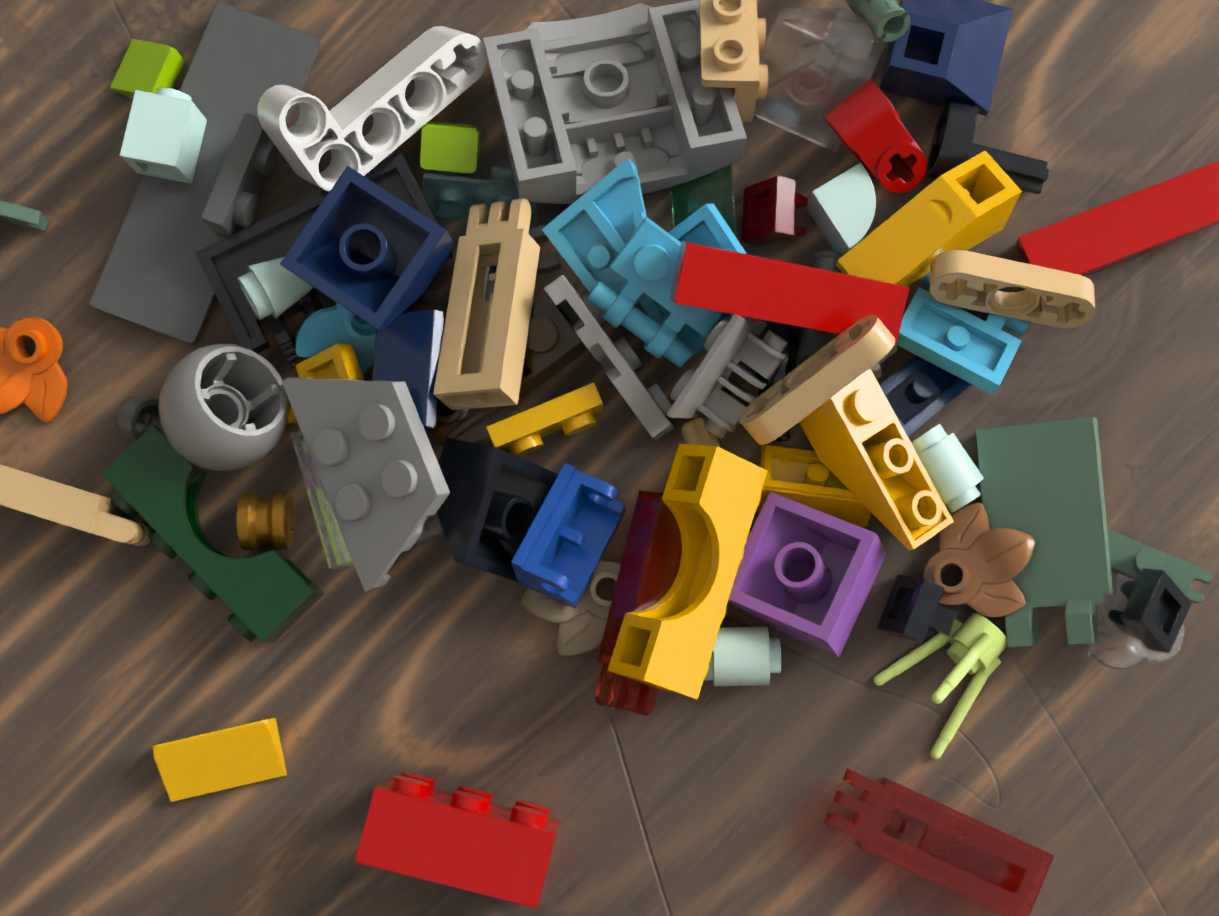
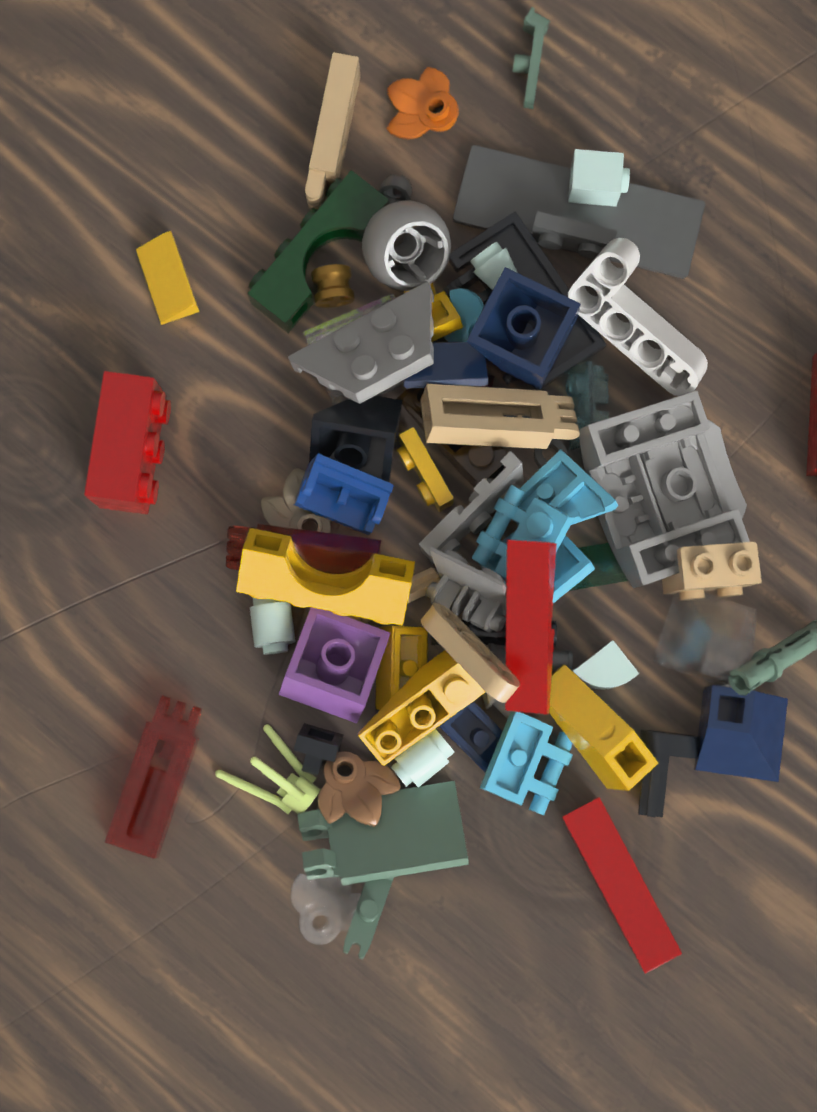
camera: 85 degrees right, 0 degrees up
(147, 68) = (647, 160): lime slope -> none
(451, 147) = (618, 380): lime slope -> none
(770, 211) = (597, 614): dark red tile -> none
(874, 133) = (658, 684): red piece -> none
(1049, 295) = (557, 792): tan beam -> none
(1153, 610) = (333, 914): black tile -> none

